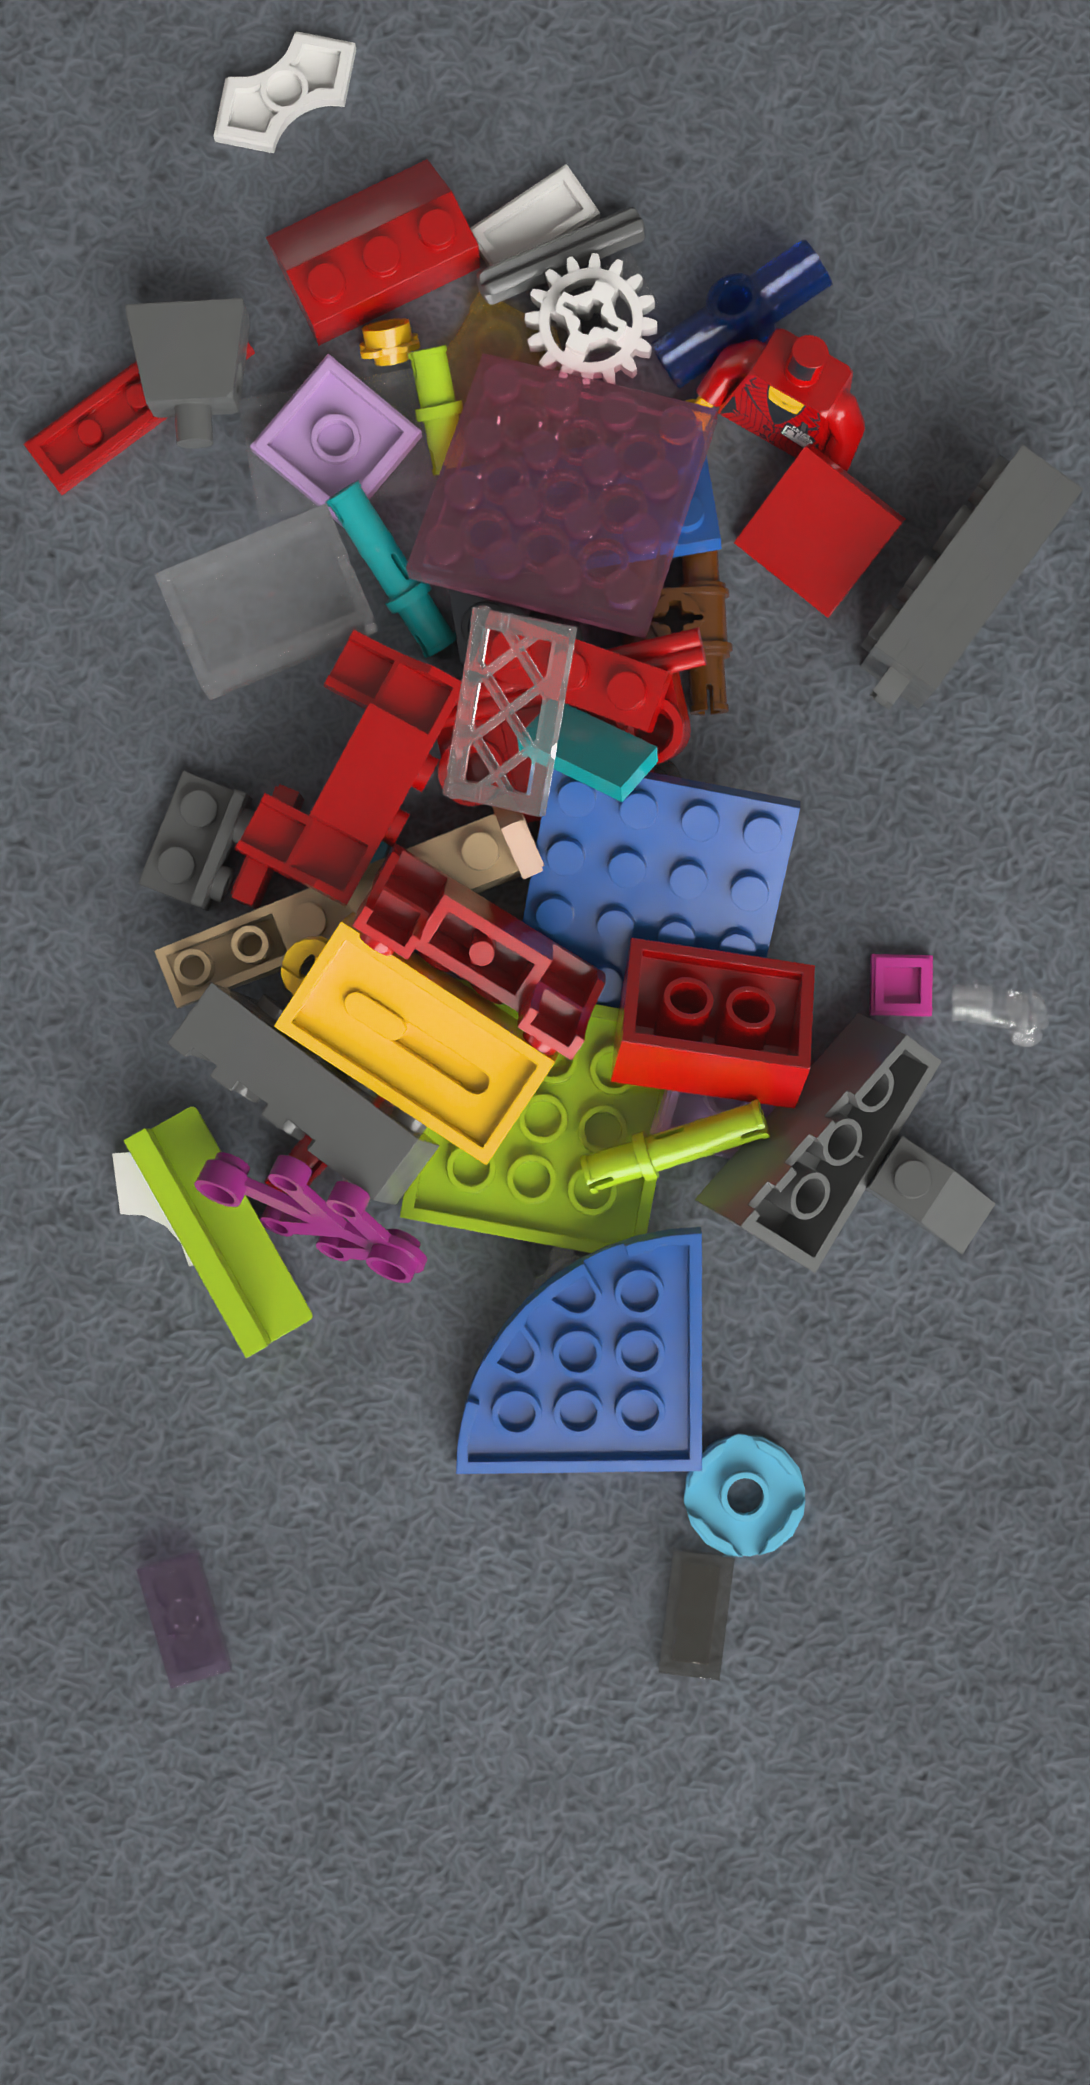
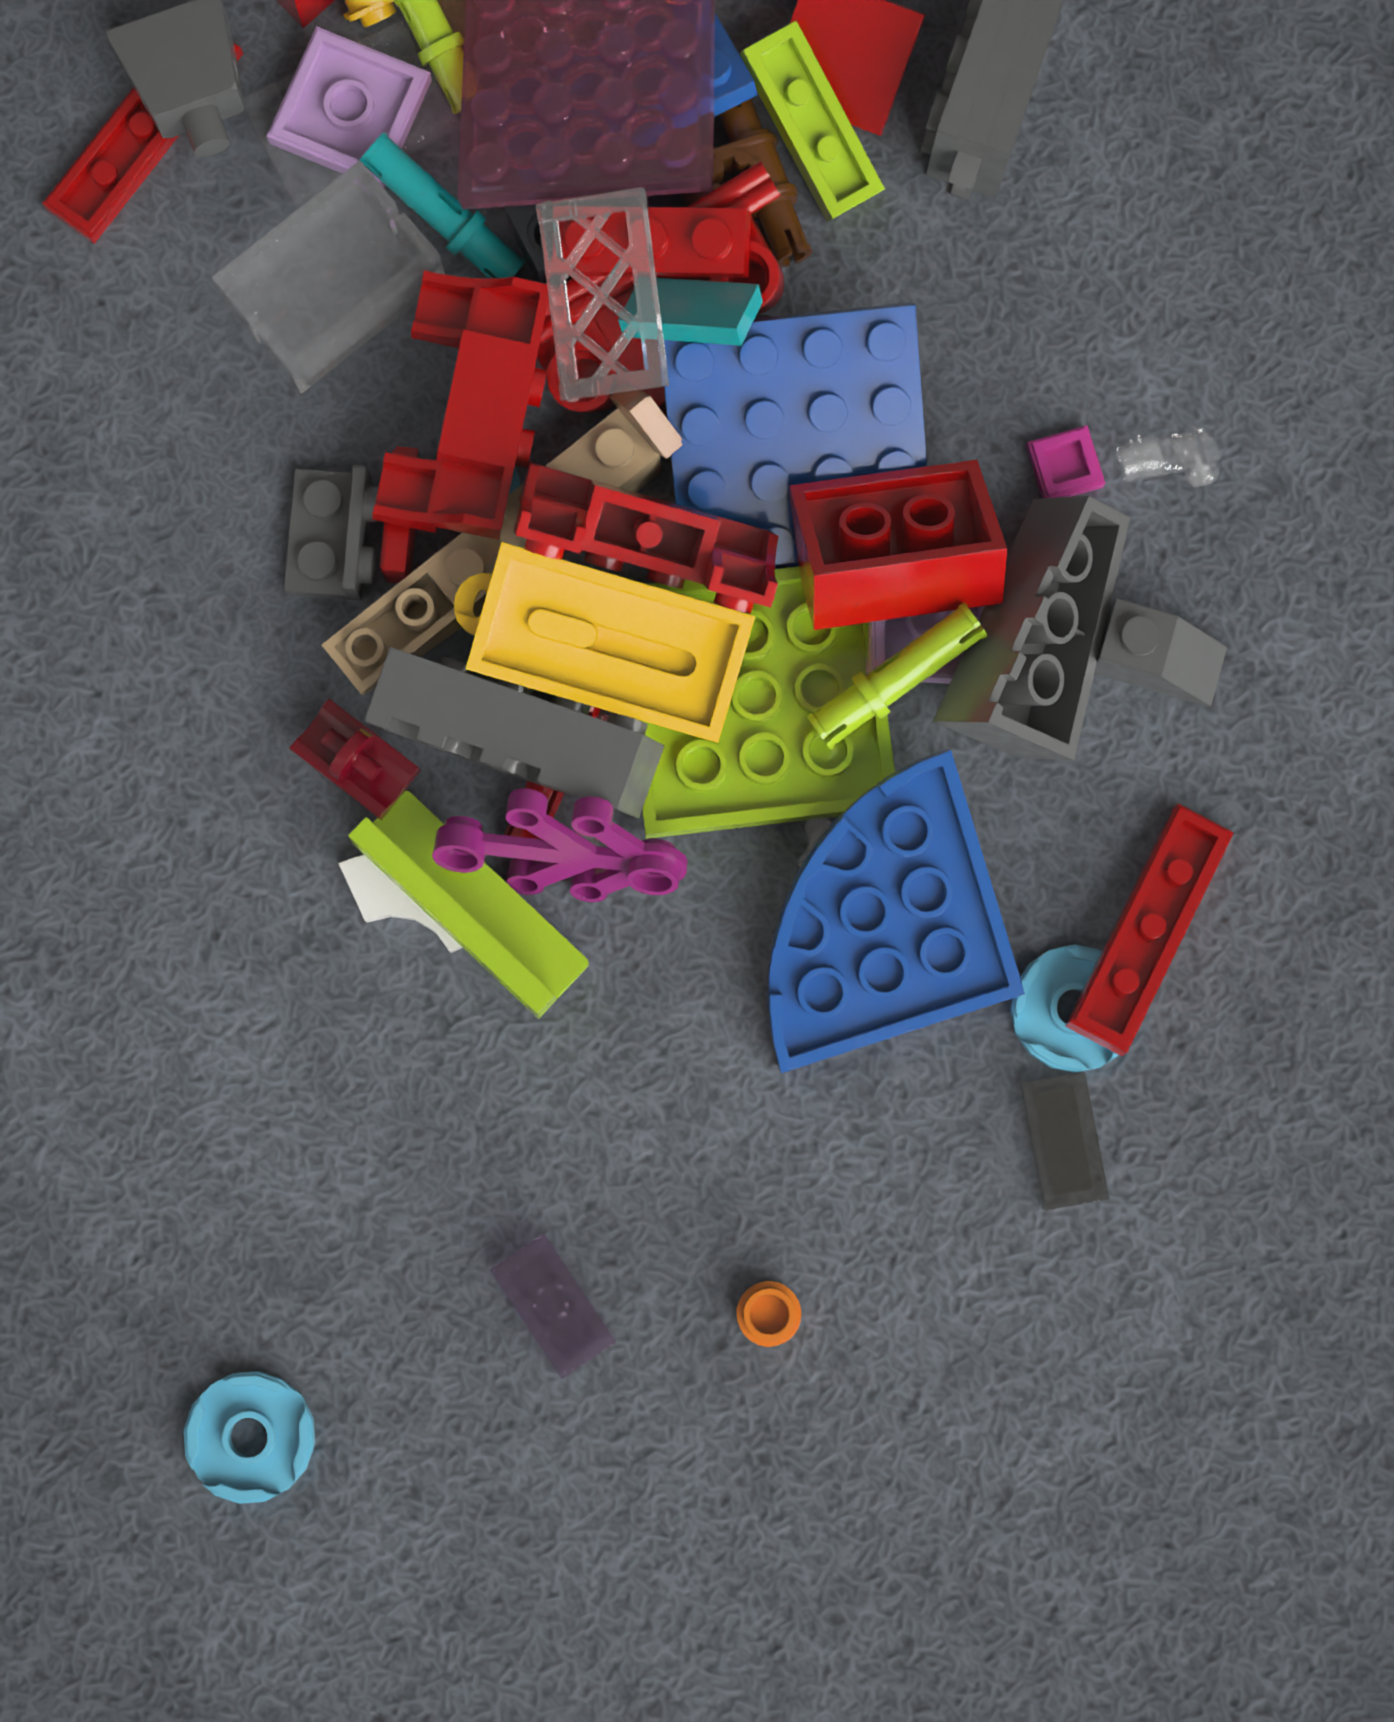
camera: 20 degrees left, 5 degrees down
(155, 1070) = (355, 759): none -> dark red hips
(377, 1685) = (768, 1313): none -> orange plate
(765, 588) = (811, 121): none -> lime plate
(836, 1446) = (1149, 930): none -> red tile

